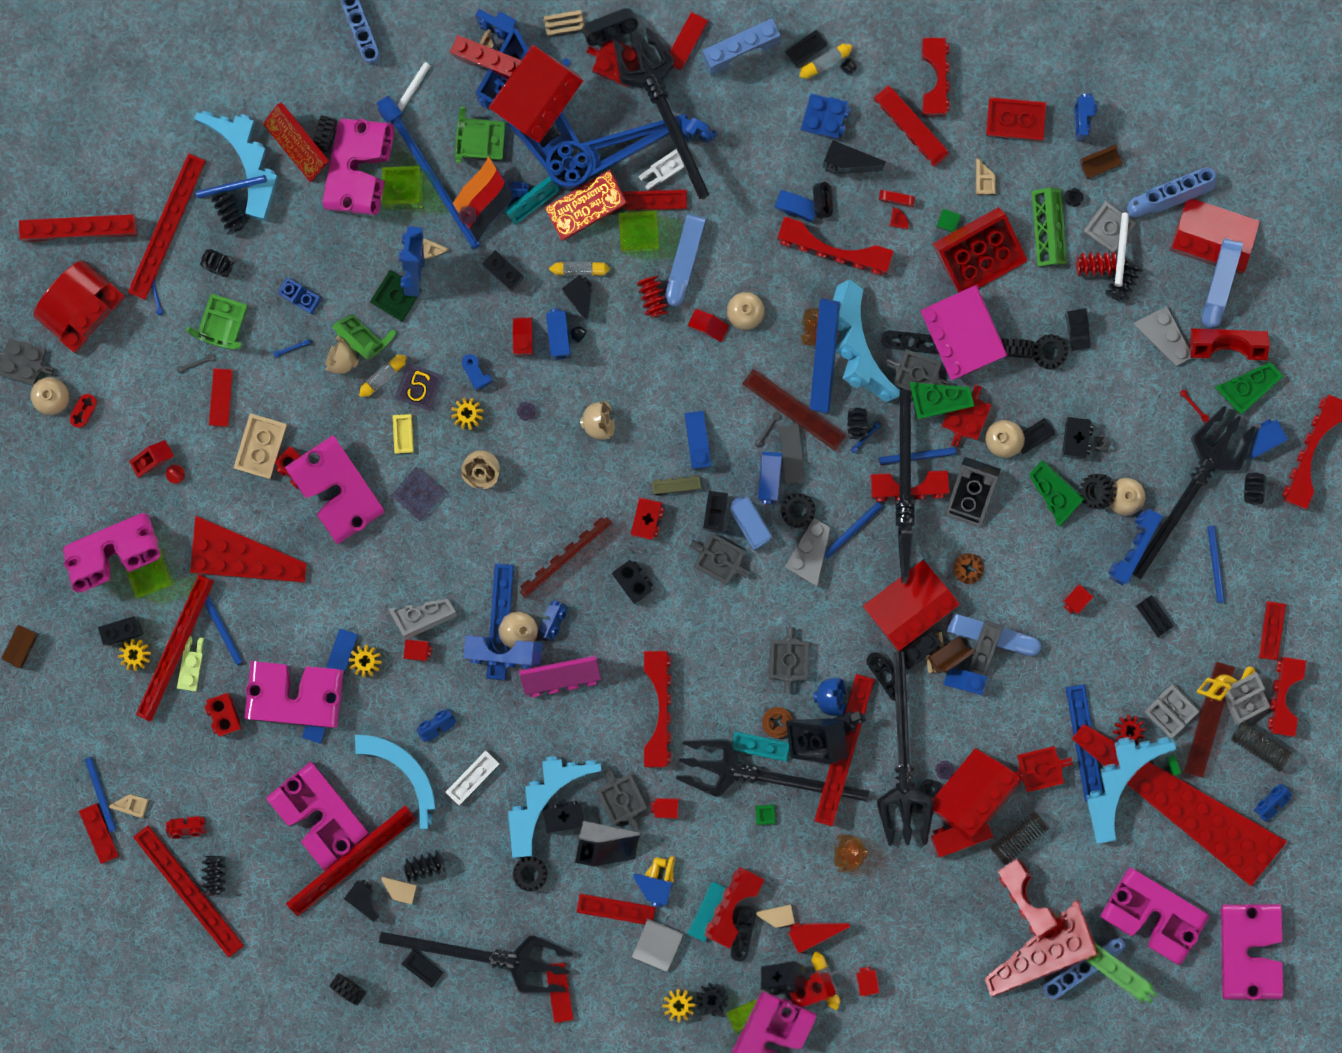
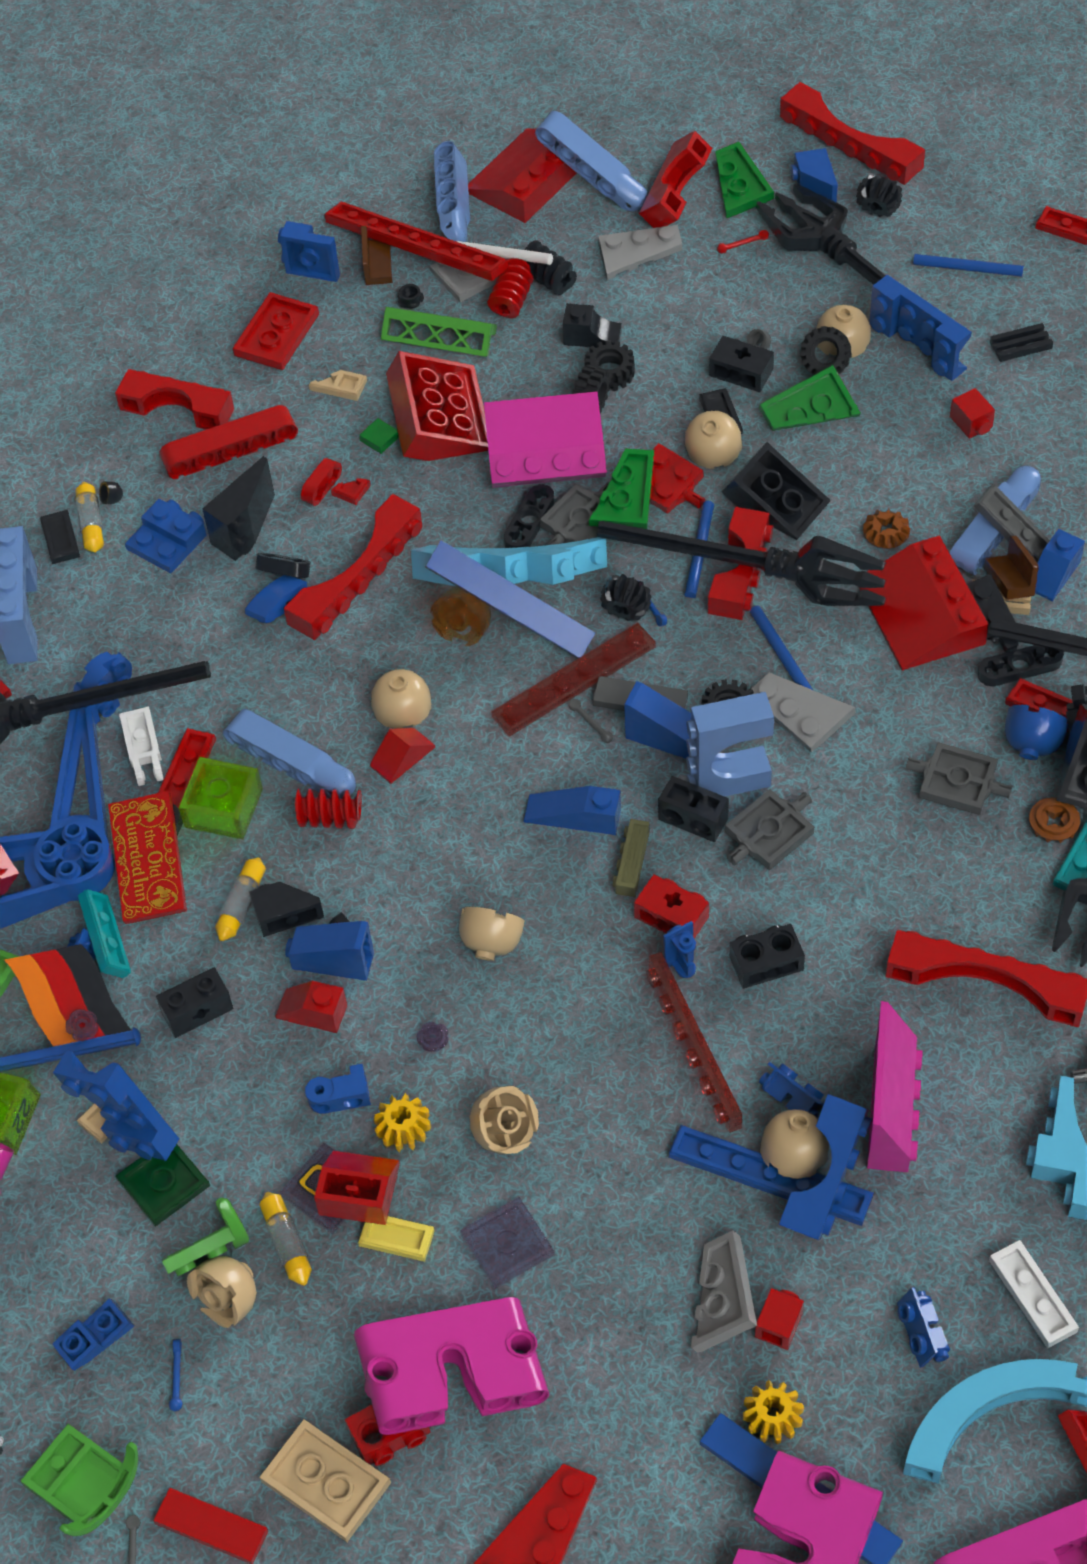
camera: 70 degrees left, 30 degrees down
(419, 404) = (356, 1187): none -> red slope
(616, 534) = (680, 948): none -> blue hinge
(1118, 184) = (417, 241): none -> red tile

